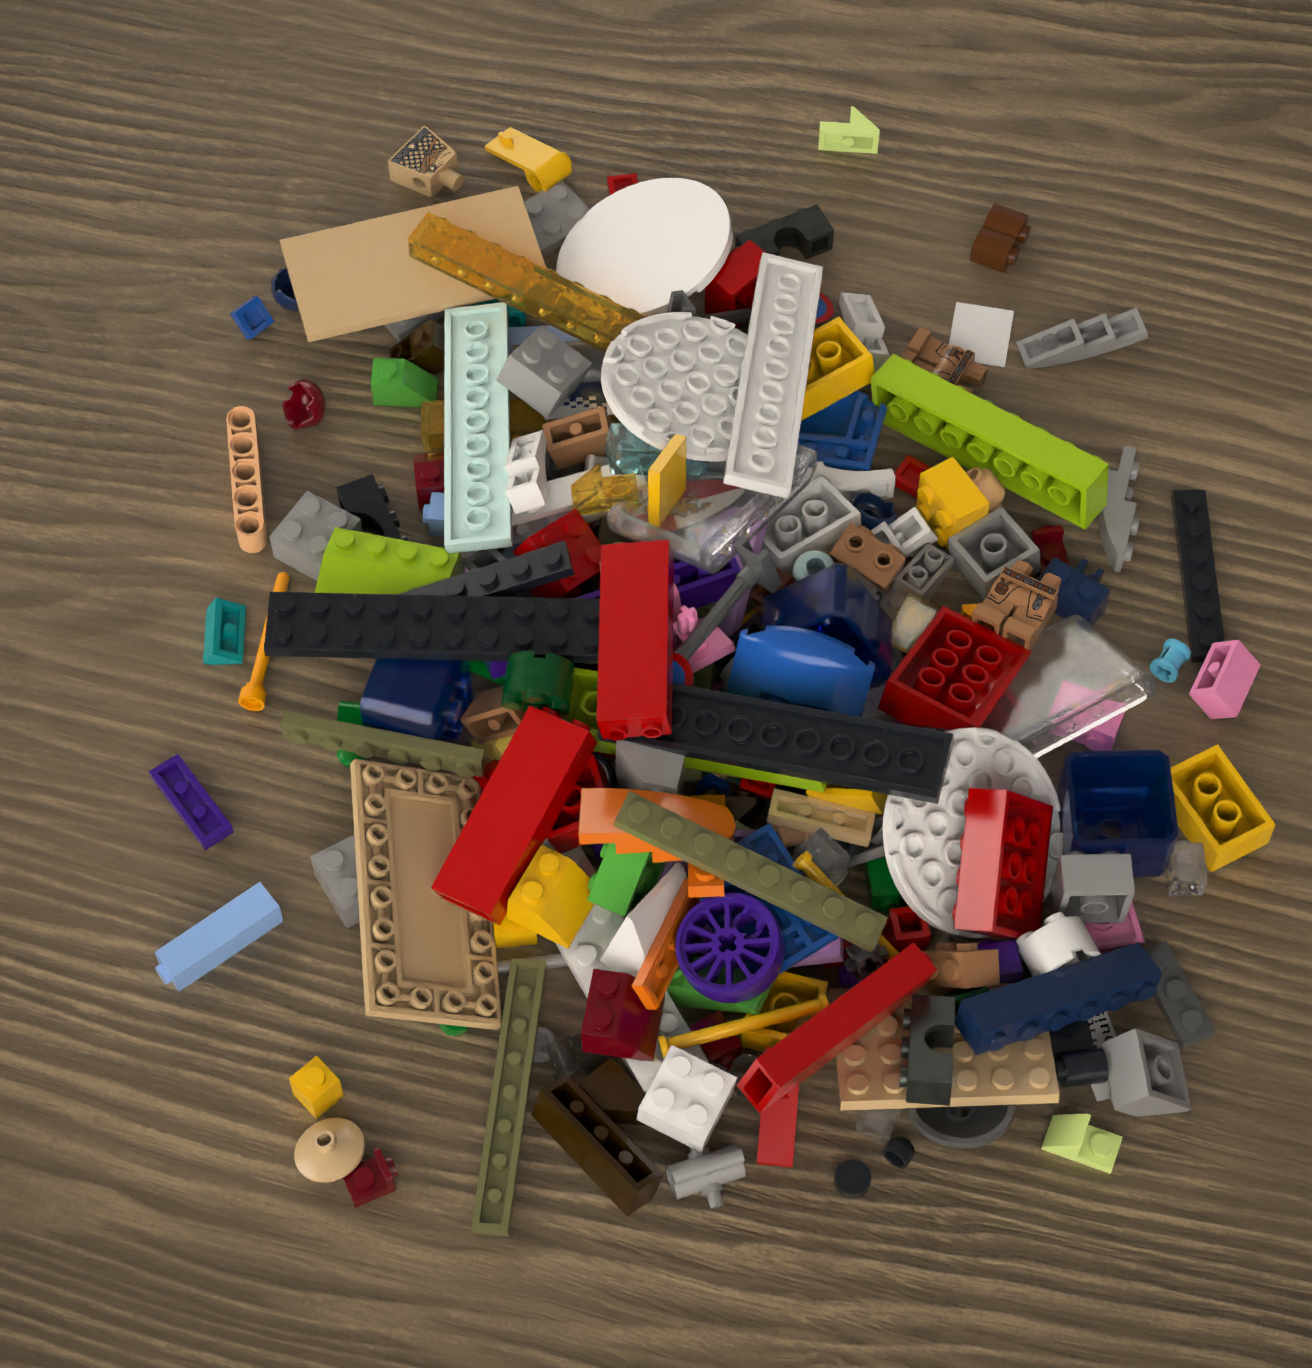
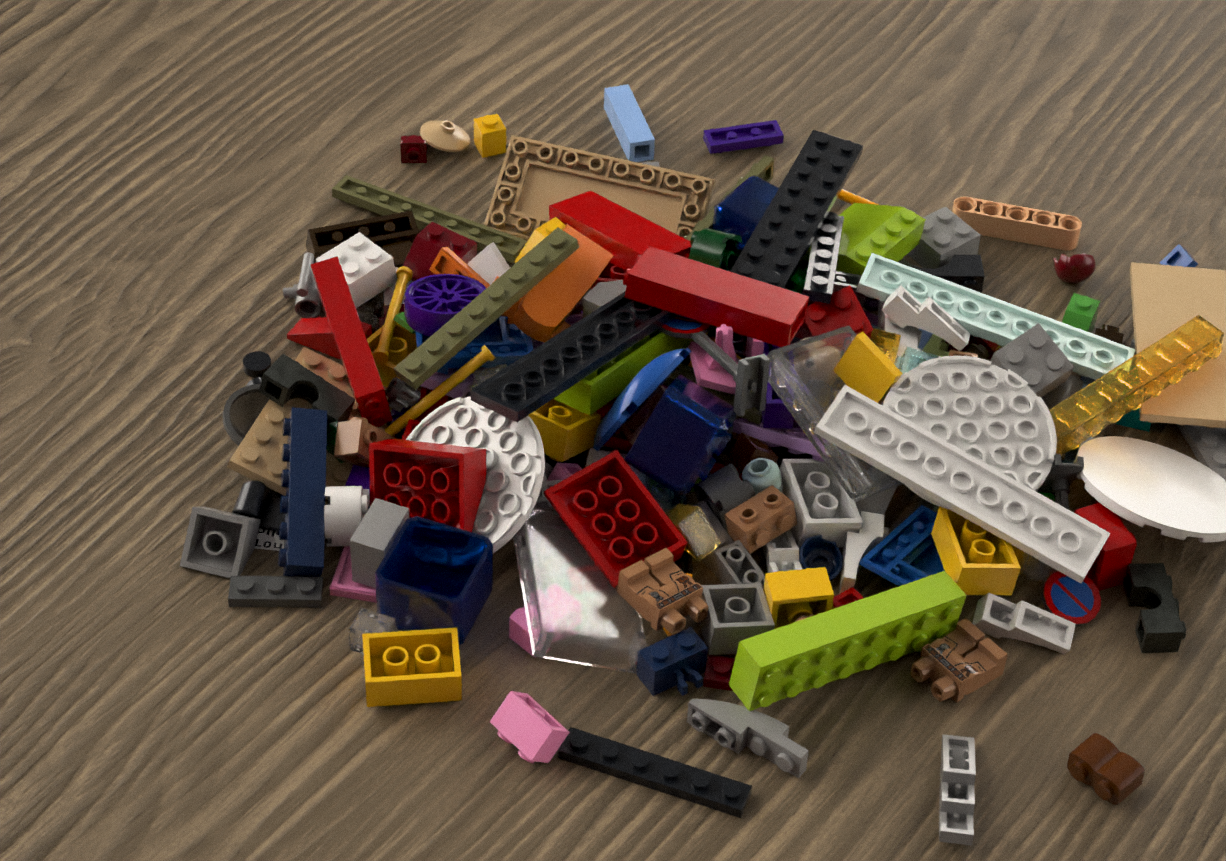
camera: 110 degrees right, 15 degrees down
(224, 633) = (881, 187): teal slope -> none
(983, 332) = (998, 723): white sticker -> none
(1076, 1140) = (199, 490): yellowish green slope -> none
(1170, 660) = (573, 707): medium azure bush -> none

